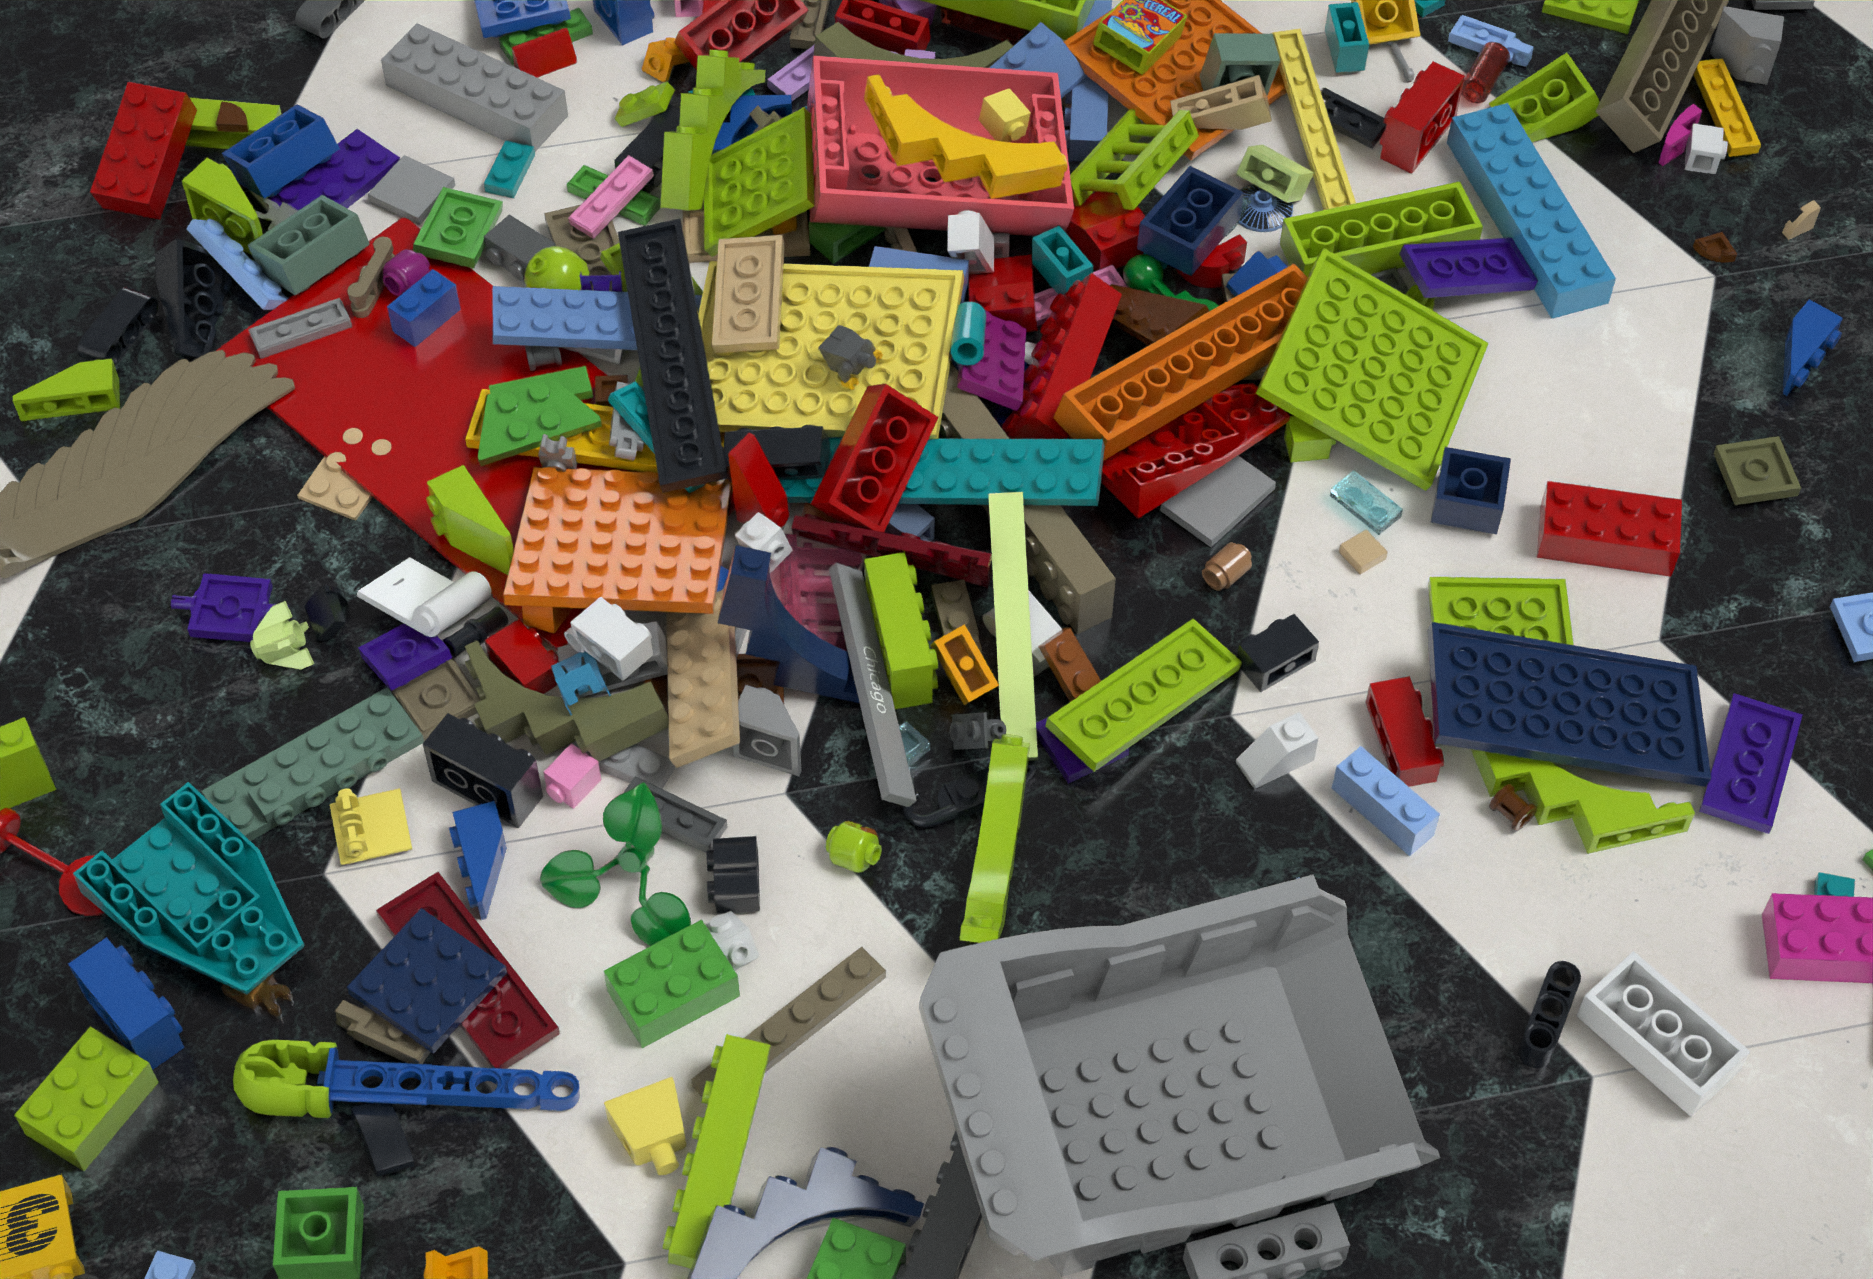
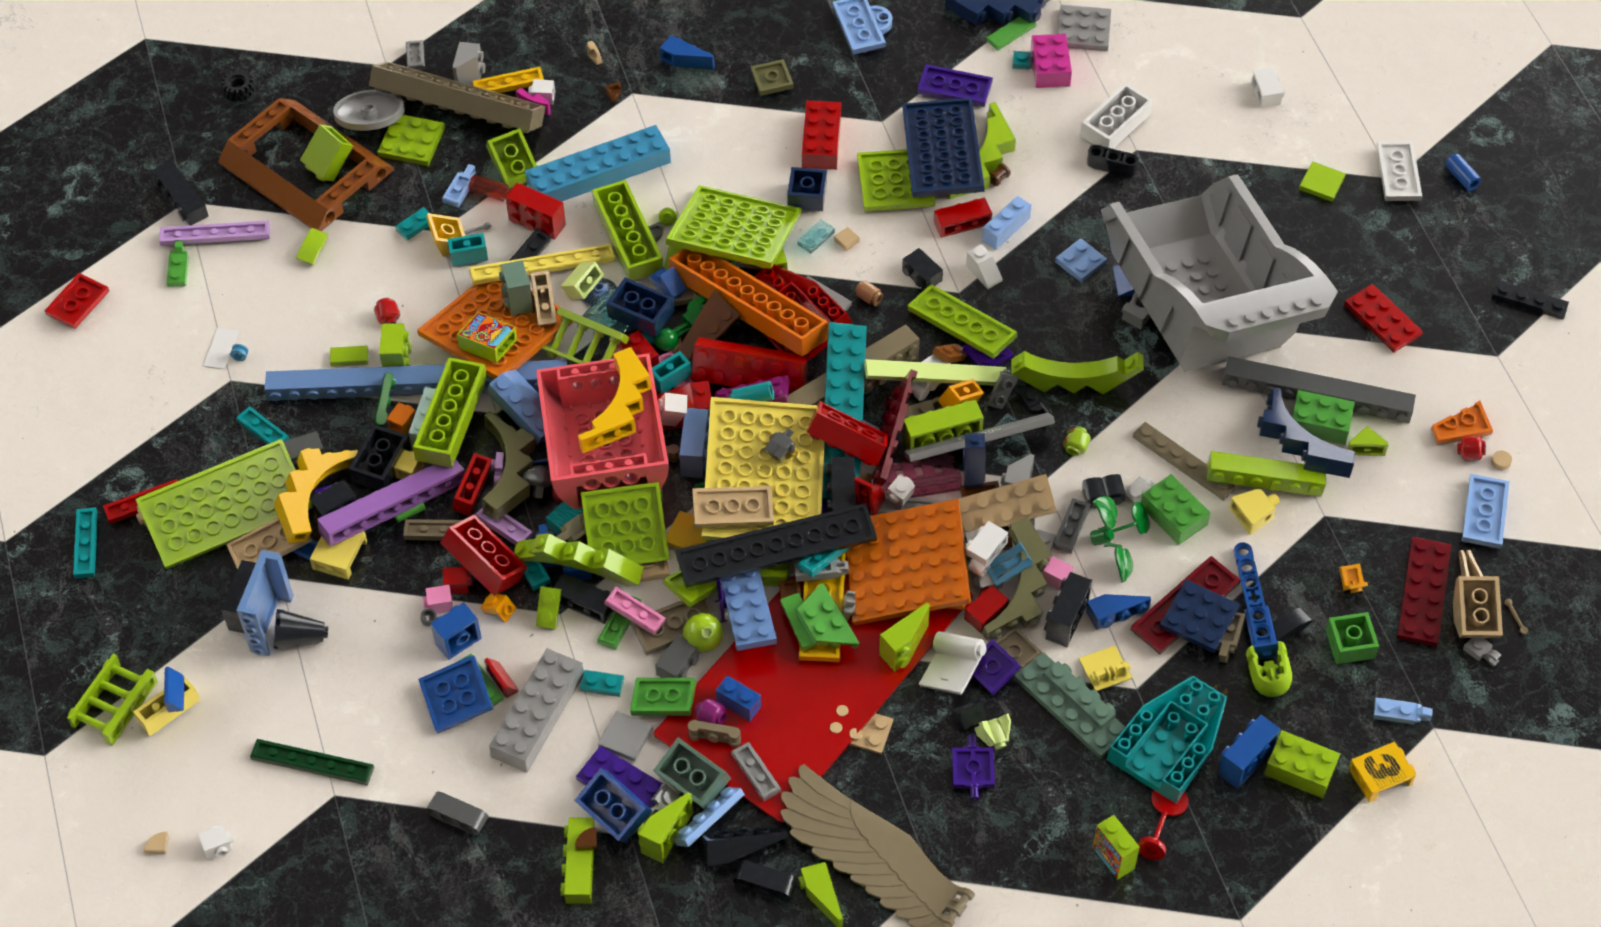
camera: 95 degrees left, 0 degrees up
(143, 150) = (620, 889): red brick -> none
(476, 630) = (964, 631): black pin -> none
(1004, 116) = (590, 383): light yellow brick -> none
(1468, 267) = (650, 191): dark purple plate -> none

